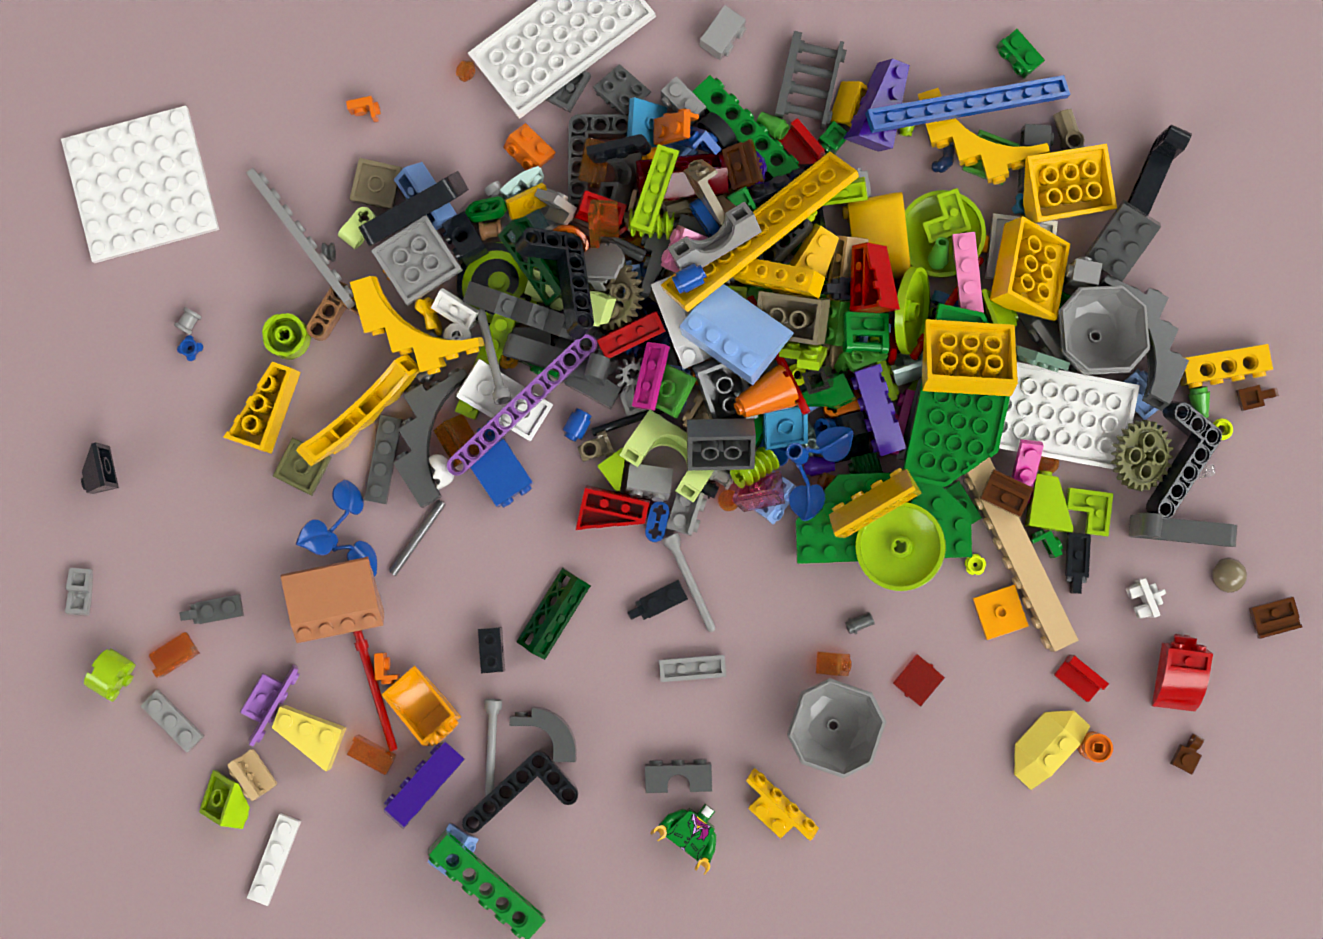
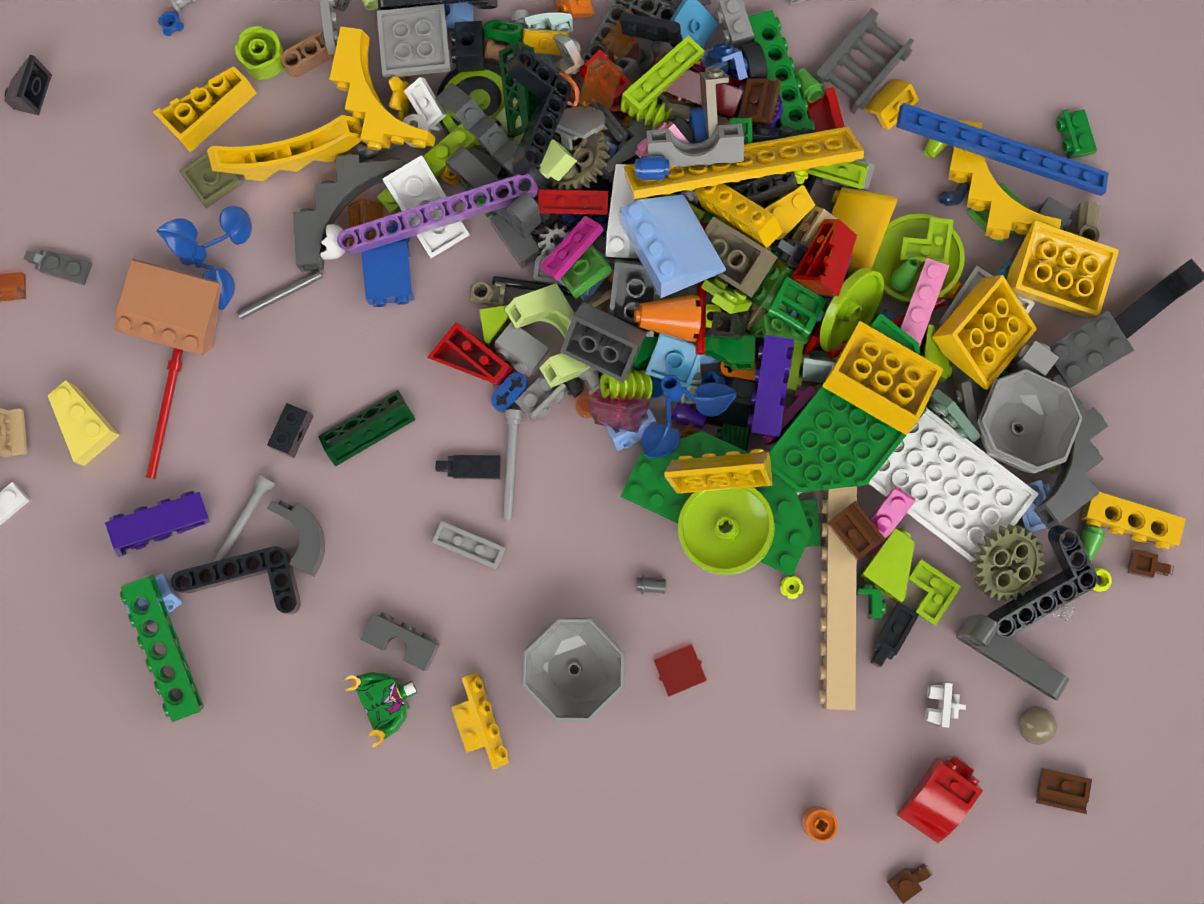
camera: 30 degrees right, 5 degrees down
(264, 700) = (57, 369): medium lavender bracket -> none
(371, 754) = (127, 471): clear orange panel -> none
(382, 664) = (180, 394): orange bracket -> none
(383, 459) = (282, 215): dark grey plate -> none
(422, 707) = (196, 450): light orange piece -> none
(501, 394) = (423, 193): light grey piece -> none
(577, 425) = (482, 265): blue brick -> none
(673, 126) = (715, 35): orange bracket -> none
(832, 138) = (860, 123): green bracket -> none
(833, 664) = (605, 611): clear orange bracket -> none
(884, 89) = (935, 96): dark purple wedge -> none
(1000, 612) = (793, 645): light orange plate -> none
(1047, 745) = (773, 798): light yellow wedge -> none
(1048, 464) = (911, 526): clear orange plate -> none
(1080, 678) = (839, 750): red panel -> none

